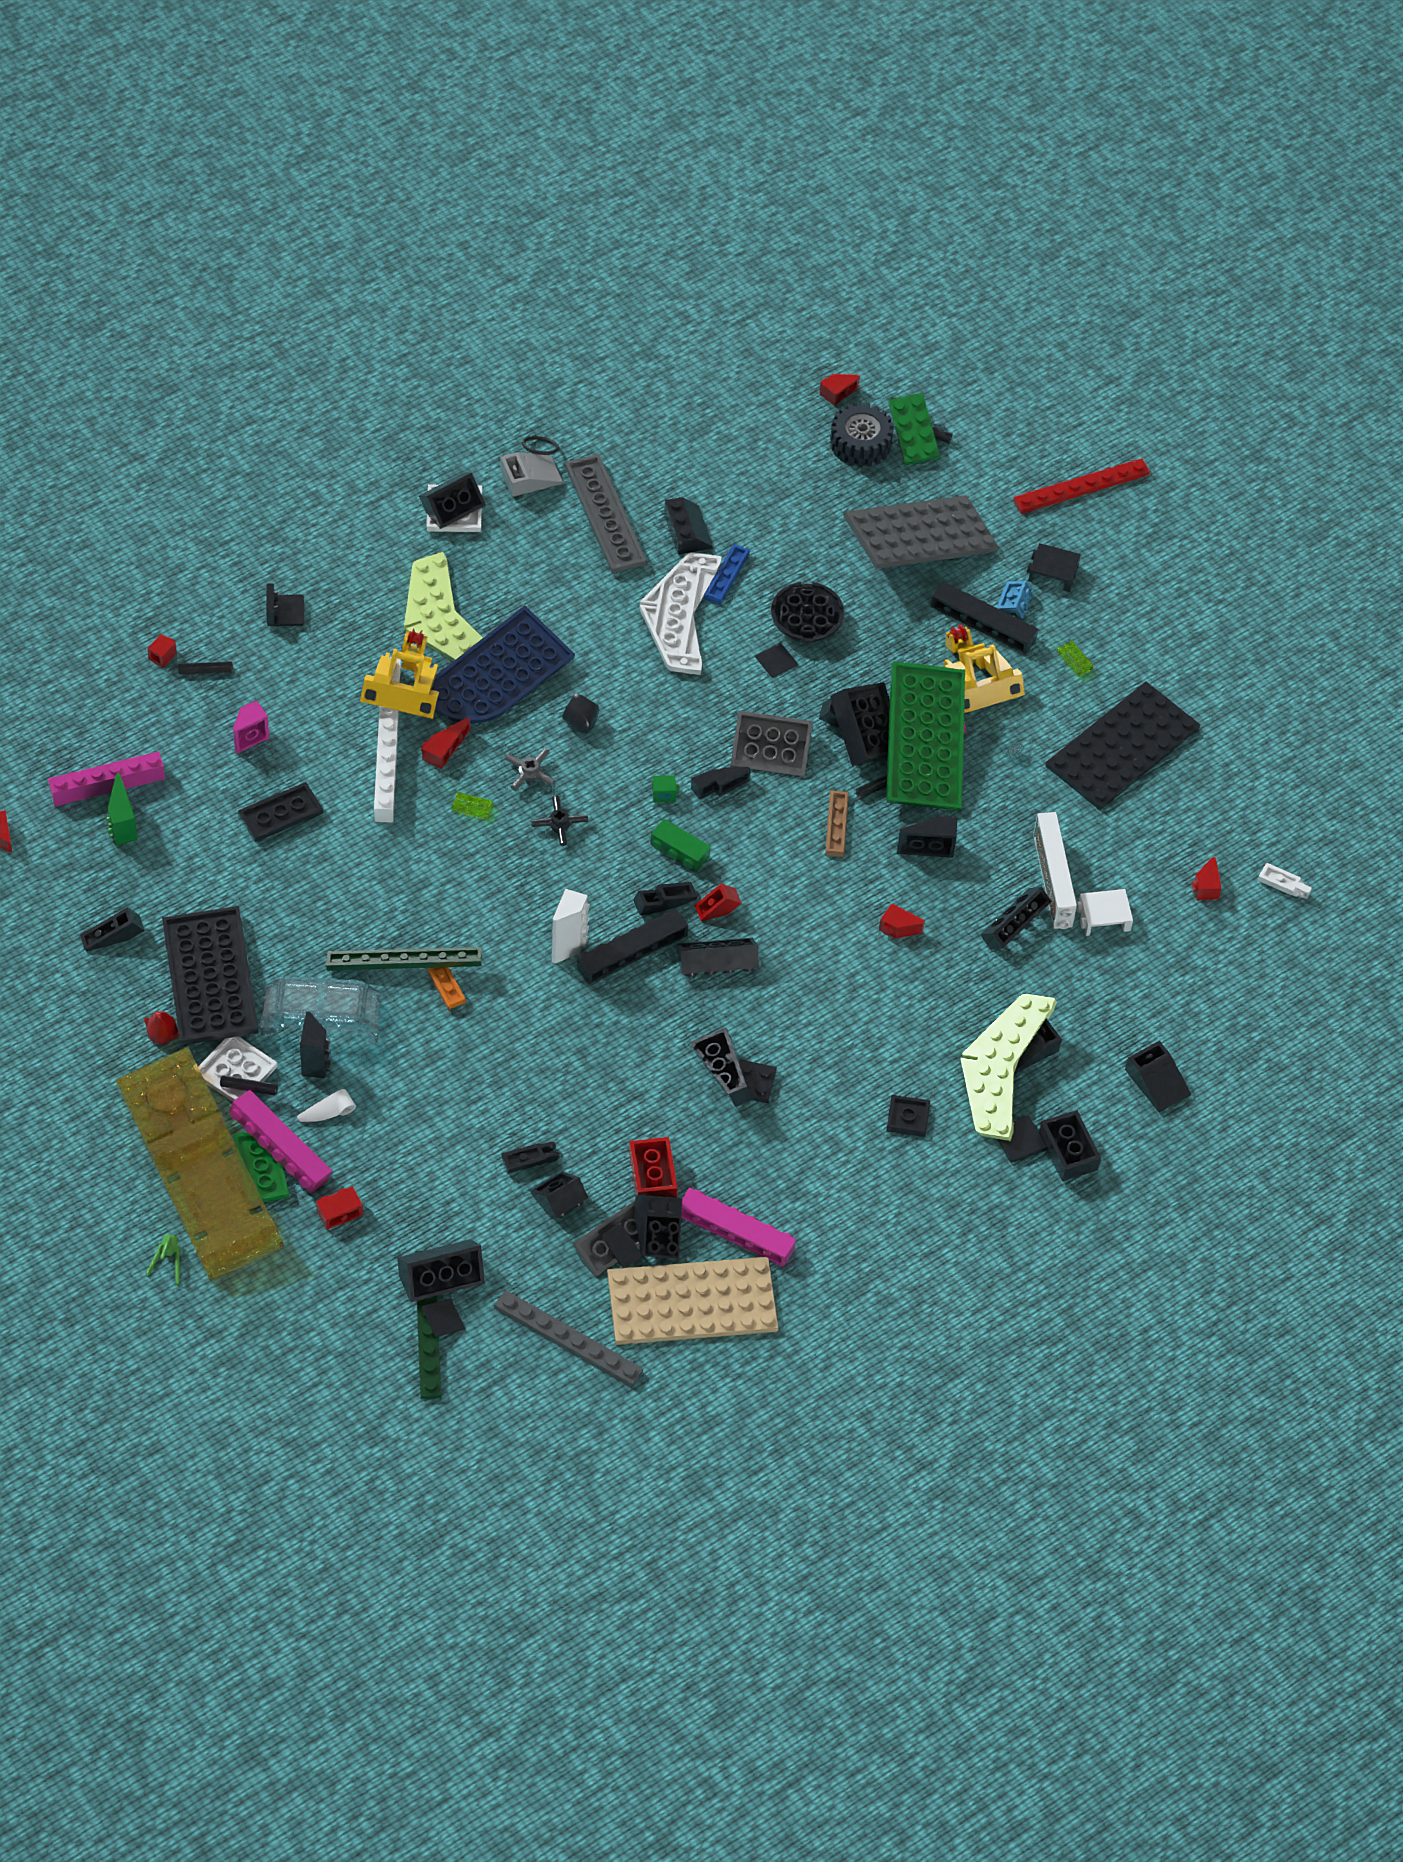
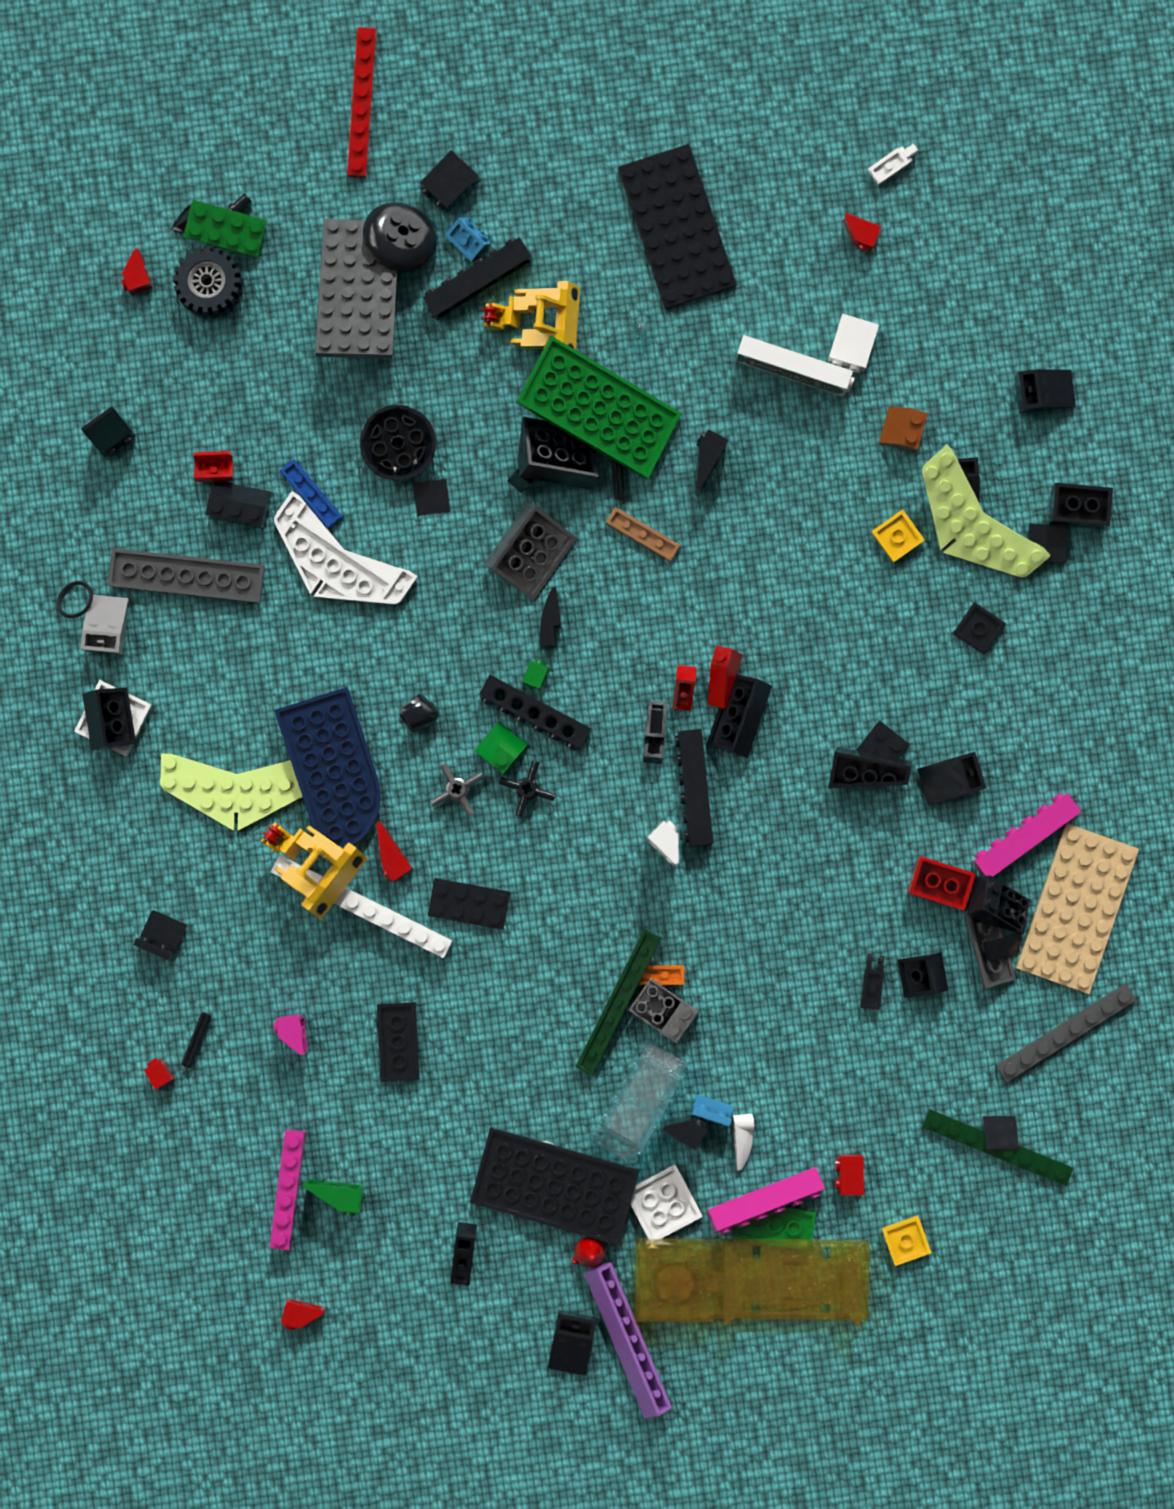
camera: 60 degrees left, 30 degrees up
(71, 1044) = (572, 1342): none -> black slope
(93, 1085) = (628, 1340): none -> medium lavender brick
(168, 1247) = (821, 1340): bright green plant -> none
(246, 1085) = (691, 1202): black axle -> none
(299, 1279) = (906, 1240): none -> yellow plate
(342, 1071) = (712, 1110): none -> dark azure bracket
(414, 1000) = (664, 1011): none -> flat silver slope
(432, 819) = (468, 903): none -> black plate
(441, 1270) = (959, 1115): black slope -> none
(471, 807) = (458, 871): clear neon green tile -> none
(584, 791) = (501, 748): none -> green slope
(630, 811) = (494, 685): none -> black brick
(680, 845) = (605, 692): green brick -> none
(695, 409) = (108, 432): none -> black slope
(709, 496) = (213, 466): none -> red bracket
(750, 925) = (722, 675): none -> red slope
(757, 1144) = (951, 778): none -> black slope
(900, 923) = (779, 535): red slope -> none
(953, 1015) = (897, 536): none -> yellow plate
(984, 547) = (395, 250): none -> black brick
(1015, 918) = (826, 427): black brick -> none
(1054, 982) = (903, 428): none -> dark orange slope
(1077, 656) = (560, 217): clear neon green tile -> none

